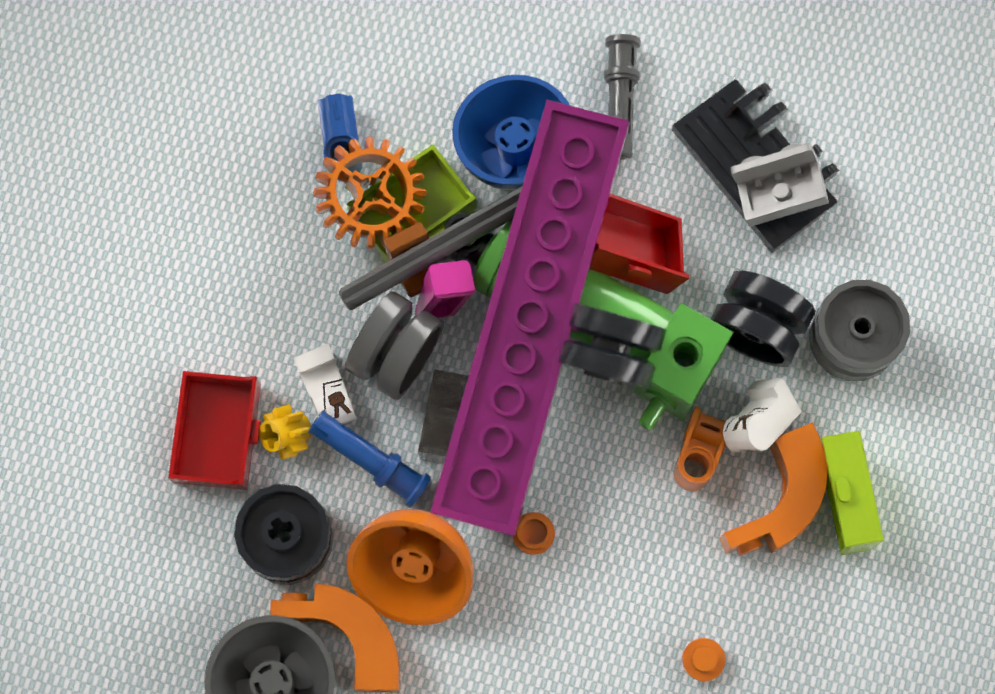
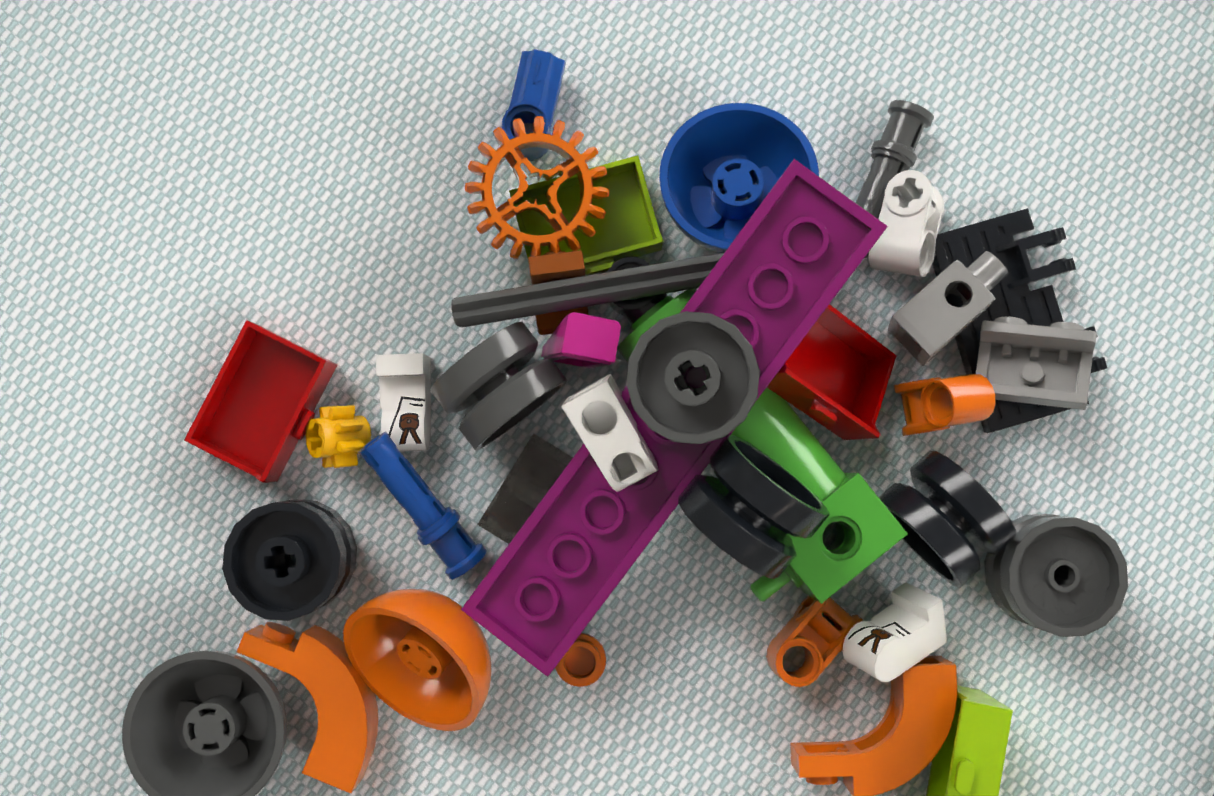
camera: 25 degrees right, 10 degrees up
(493, 334) = (610, 433): none -> white leg
(531, 244) = (659, 384): none -> dark grey wheel
(652, 122) = (912, 231): none -> white piece
(694, 183) = (930, 322): none -> light grey torso
(728, 238) = (945, 402): none -> orange piece

